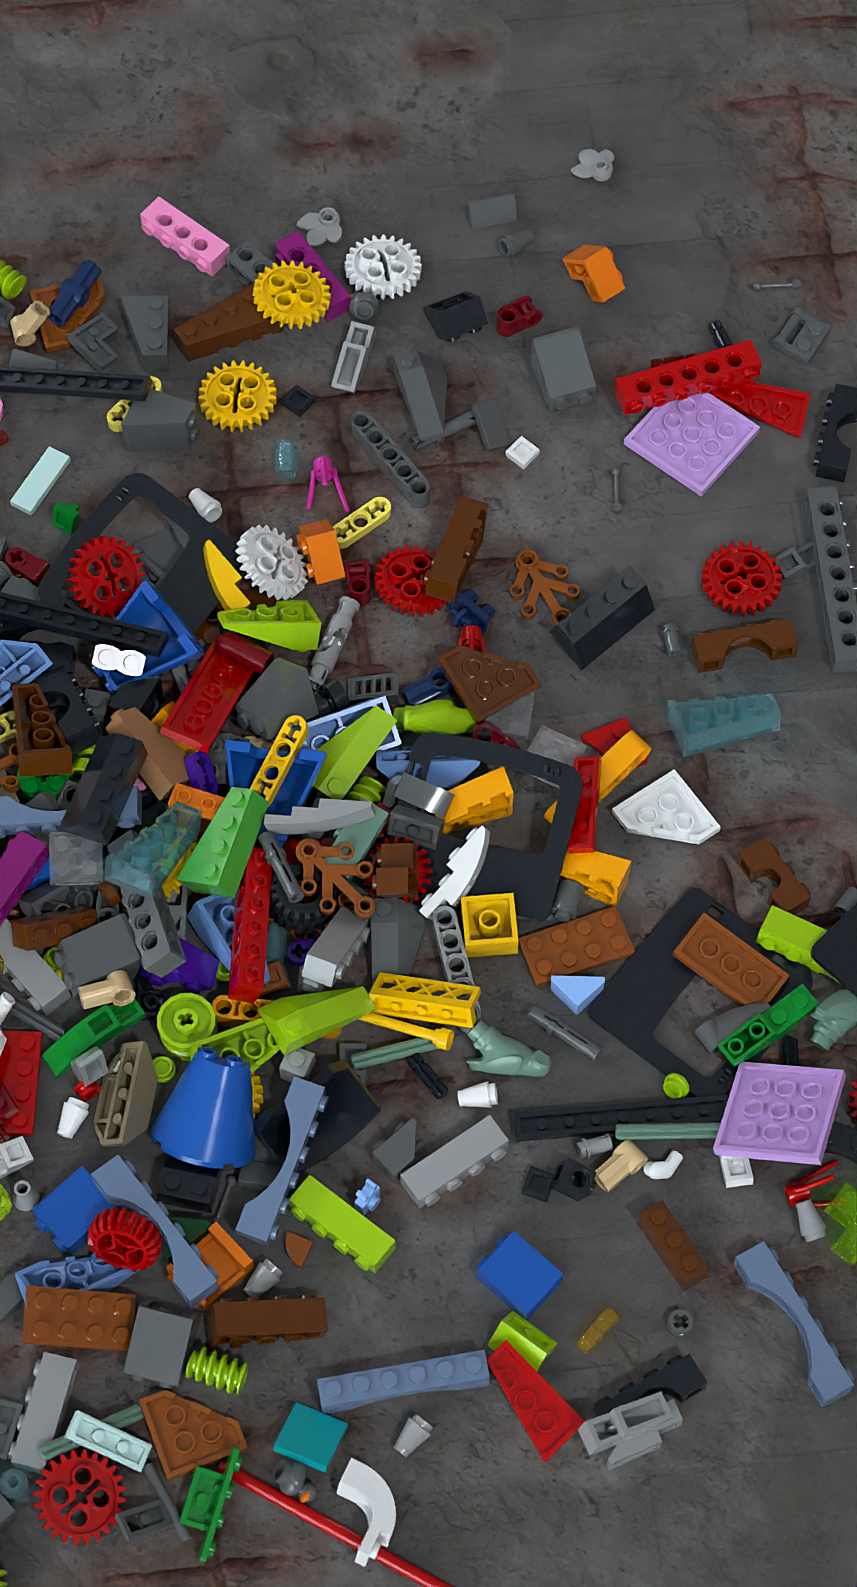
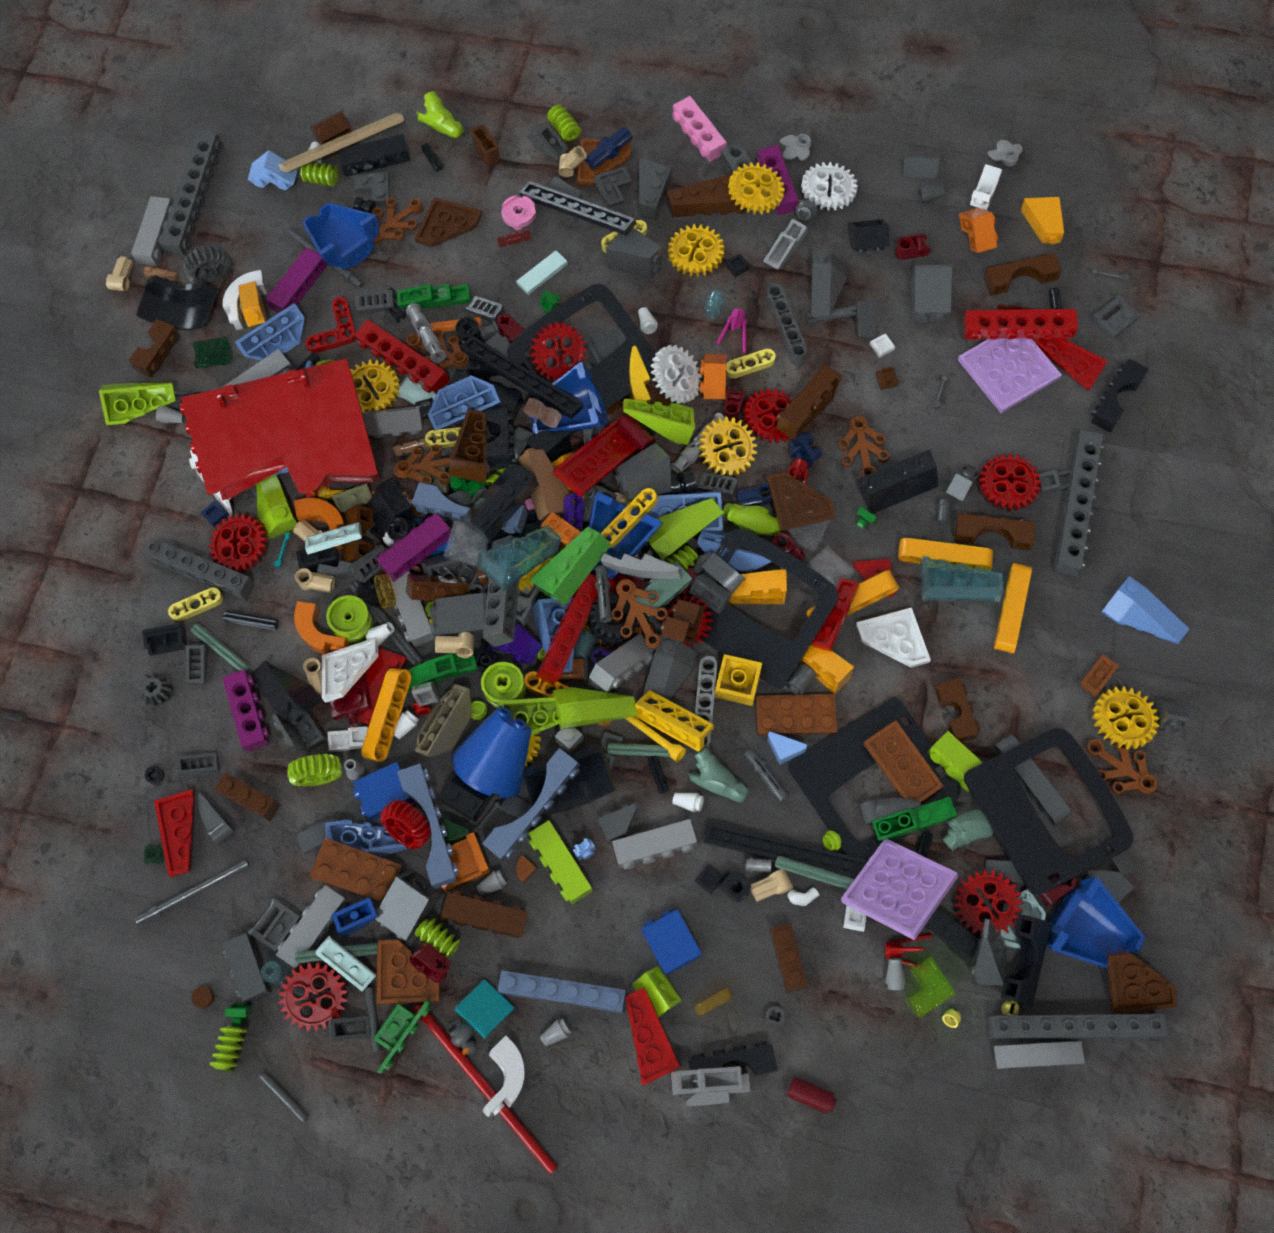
camera: 25 degrees right, 5 degrees up
(44, 1111) = (386, 714): none -> light orange beam
(99, 1378) = (354, 917): none -> blue slope
(219, 1400) = (429, 961): none -> dark red piece
(356, 617) = (722, 431): none -> yellow gear
(466, 864) = (735, 633): white slope -> none
(542, 492) = (887, 378): none -> reddish brown tile
(578, 675) = (866, 517): none -> green tile
(585, 216) = (986, 187): none -> white arch
(652, 697) = (973, 557): none -> light orange beam
(672, 235) = (1044, 218): none -> light orange slope
(684, 595) = (963, 482): none -> slope
(691, 300) = (1042, 268): none -> reddish brown arch
(758, 1400) = (811, 1095): none -> dark red brick
(763, 1274) = (867, 1092): sand blue arch -> none
(799, 732) = (1013, 608): none -> light orange beam

